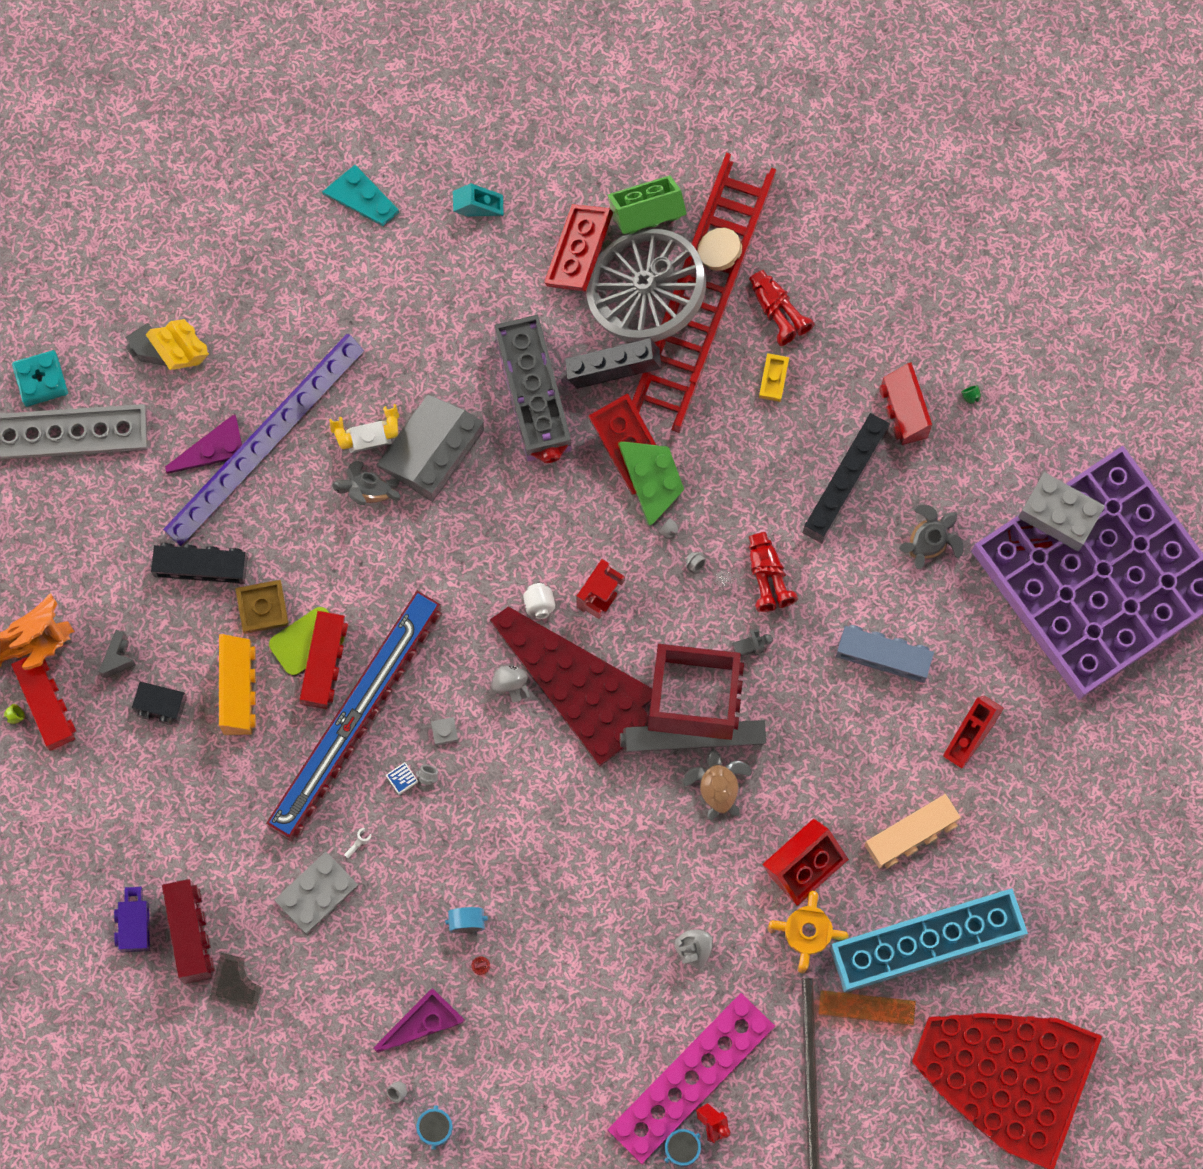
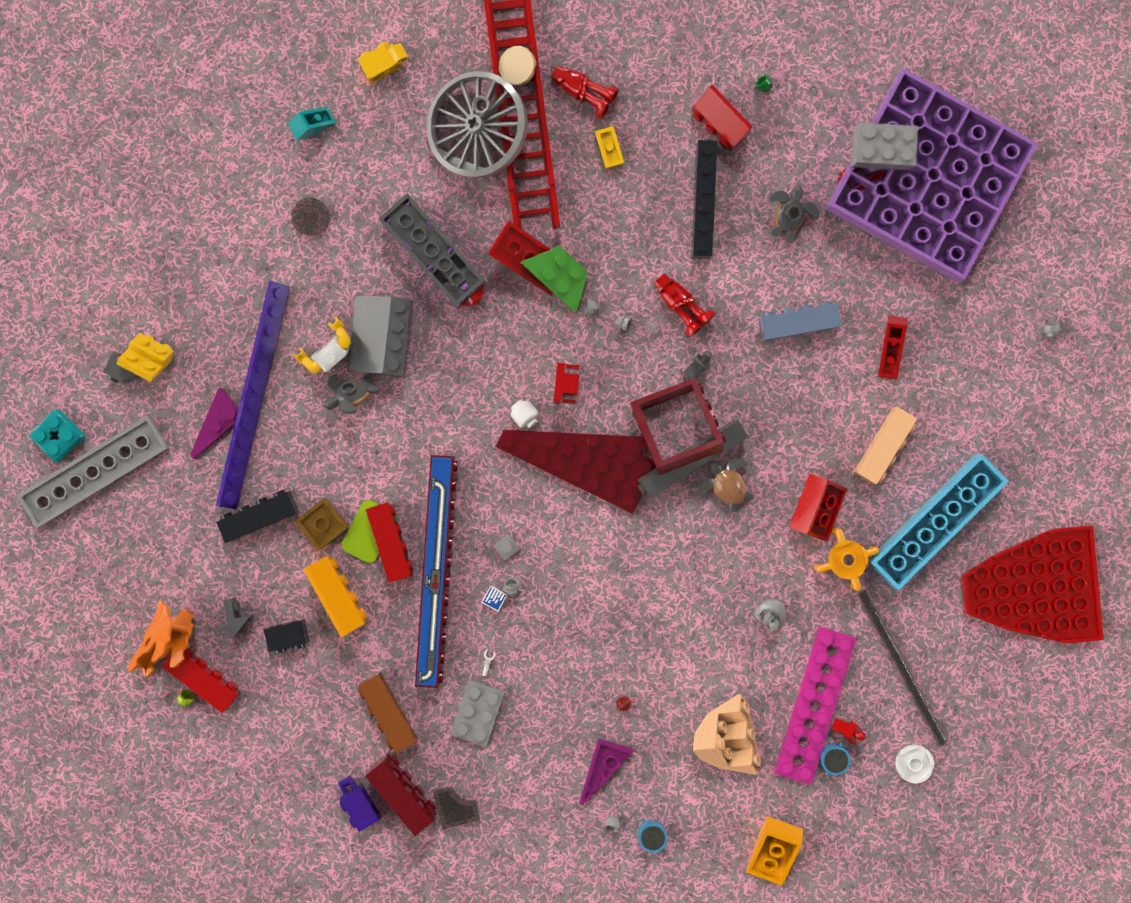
camera: 25 degrees left, 15 degrees up
(220, 840) = (387, 712): none -> dark orange brick
(362, 195) = (220, 163): teal wing -> none
(425, 293) = (310, 216): none -> clear smoke tile
(466, 920) = (597, 679): dark azure piece -> none
(511, 679) = (535, 486): light grey piece -> none
(576, 1061) = (728, 738): none -> light nougat brick
(578, 247) = (408, 119): plate -> none
(584, 178) = (383, 61): none -> yellow hinge
(613, 363) = (484, 201): brick -> none
(647, 205) = (443, 58): bright green brick -> none
(866, 1008) = (915, 591): clear orange plate -> none
(1159, 801) = (1051, 329): none -> light grey plate

